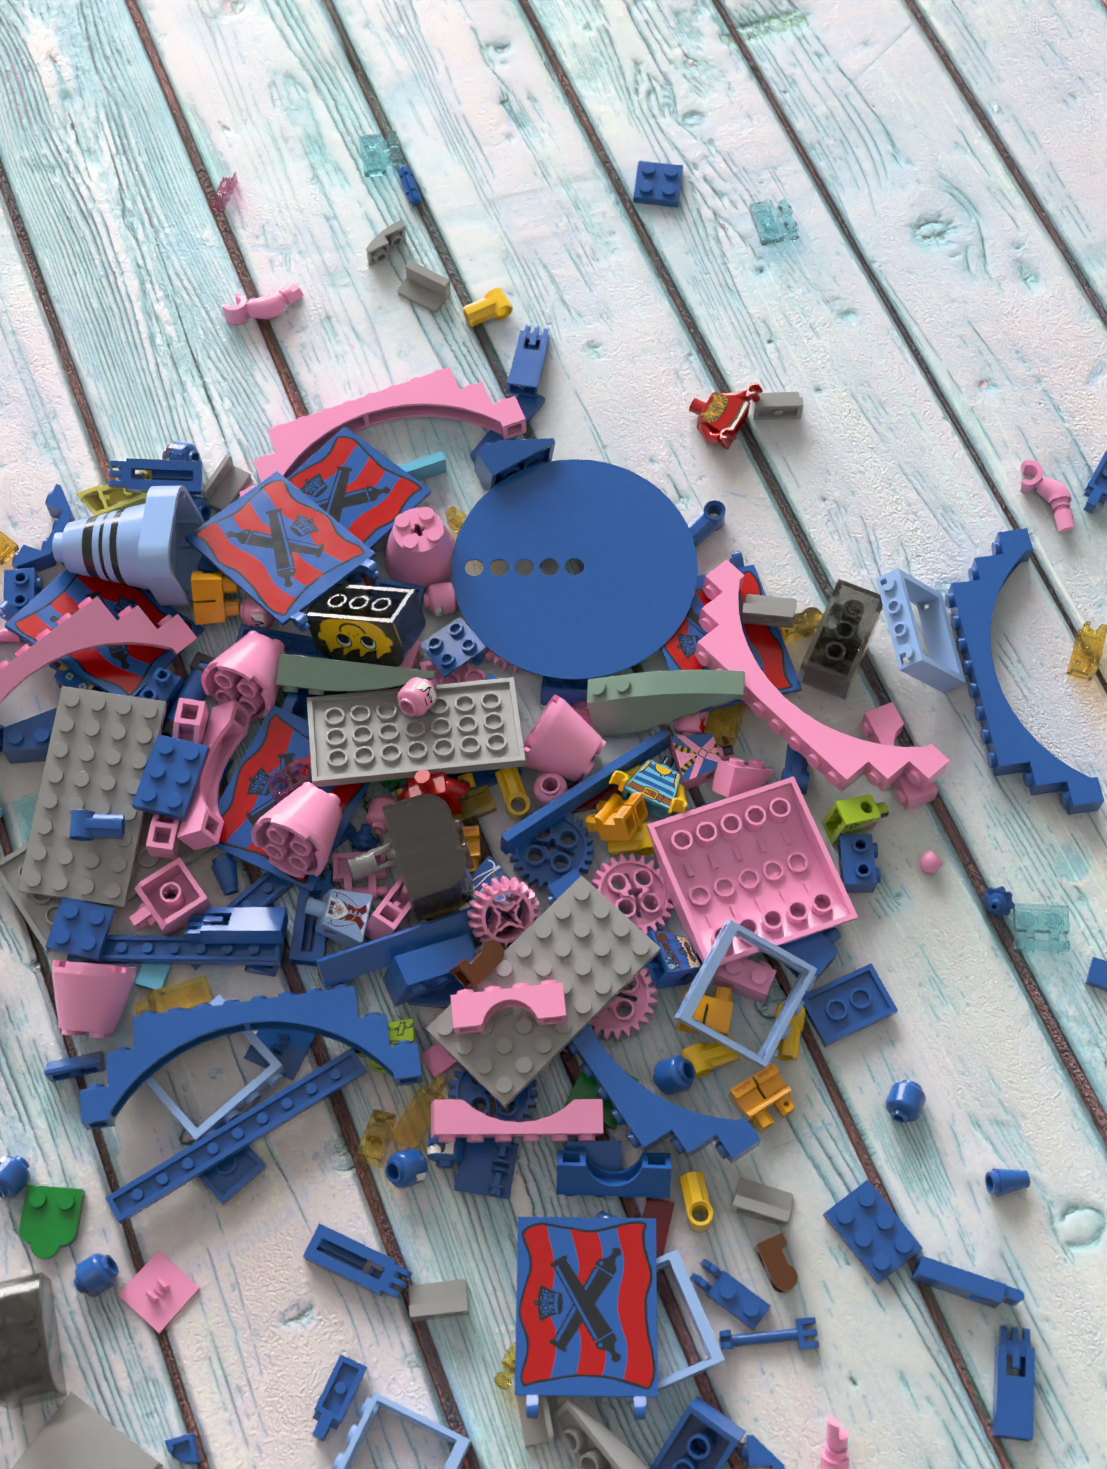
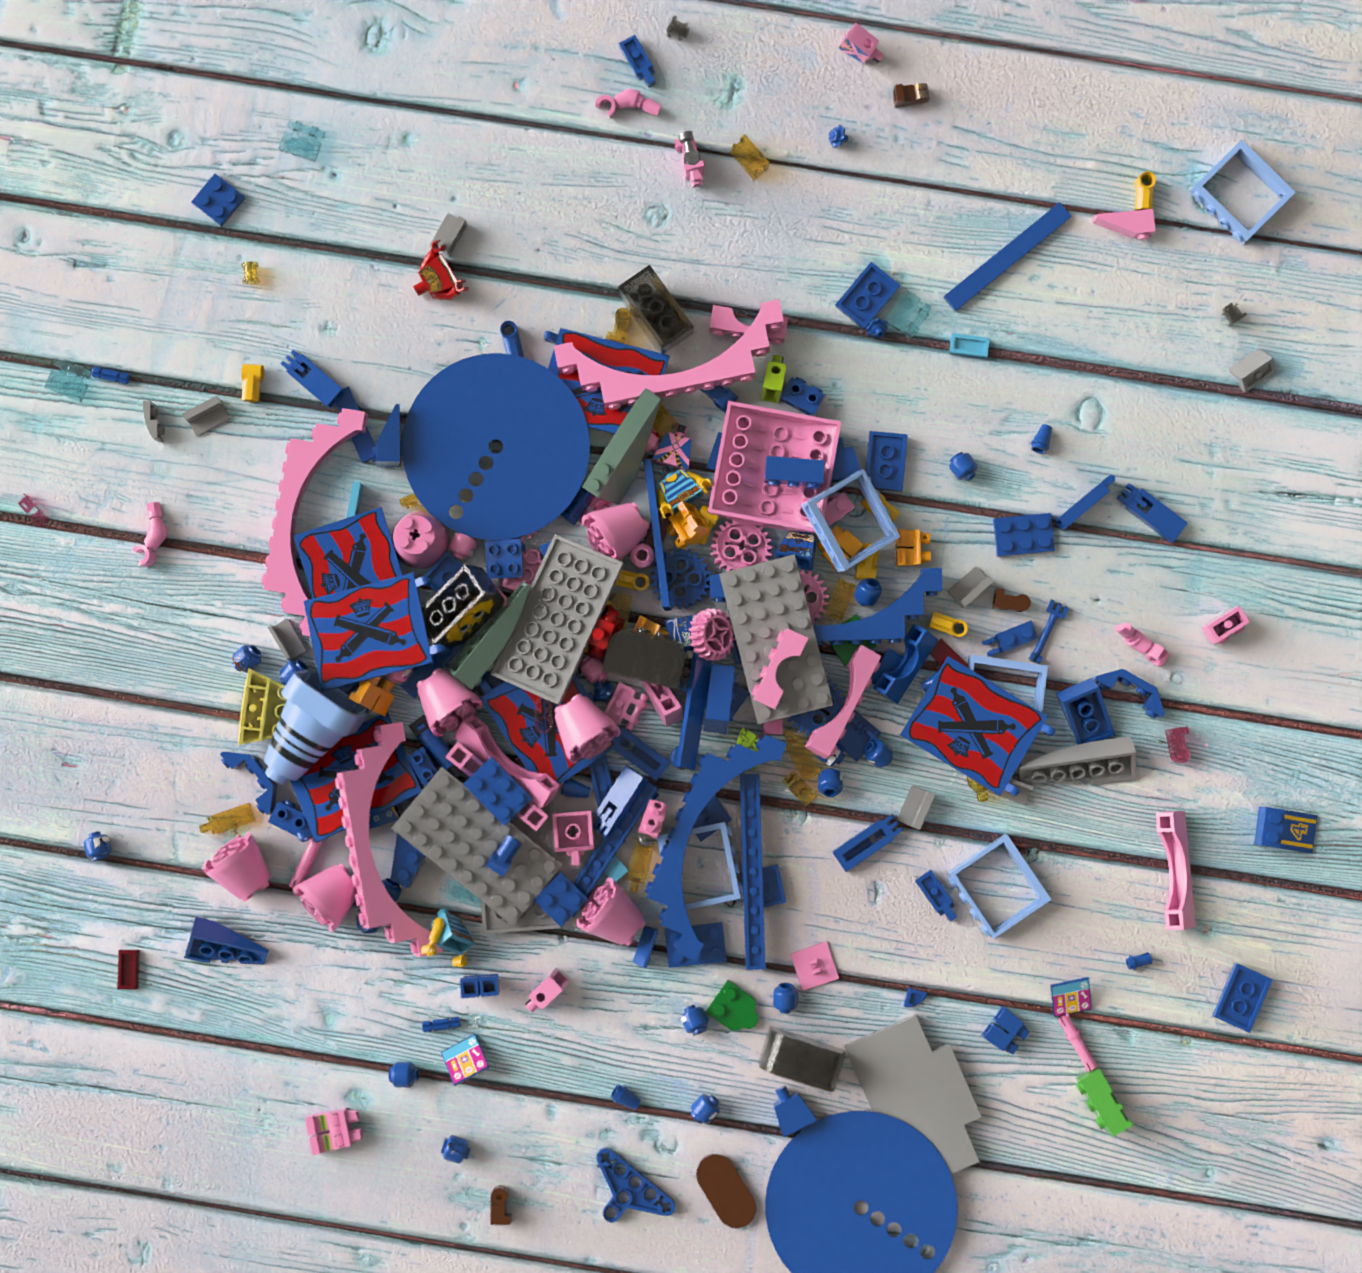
camera: 60 degrees left, 20 degrees up
(114, 1144) = (711, 952): none -> blue plate
(163, 474) = (262, 677): blue hinge -> none
(234, 973) = (651, 822): none -> bright pink hips
(341, 915) = (650, 733): light blue torso -> none
(366, 864) = (625, 699): light grey hinge -> none
(416, 697) = (537, 605): bright pink head -> none
(479, 1207) = (878, 753): none -> blue head
(484, 961) = (739, 669): reddish brown leg -> none
(602, 248) = (250, 273): none -> clear yellow bush
(642, 1047) = (839, 600): none -> clear yellow hinge
(739, 776) = (705, 432): bright pink slope -> none
(759, 892) = (794, 472): none -> blue brick
(769, 611) = (603, 340): light grey panel -> none
(930, 862) = (828, 352): bright pink hinge -> none
(943, 667) = (684, 245): light blue window -> none
(1007, 740) = (775, 250): blue arch -> none
(1029, 868) = (867, 295): none -> blue plate
(1039, 587) = (692, 165): none -> hips
(1056, 1023) = (969, 345): none -> medium azure tile

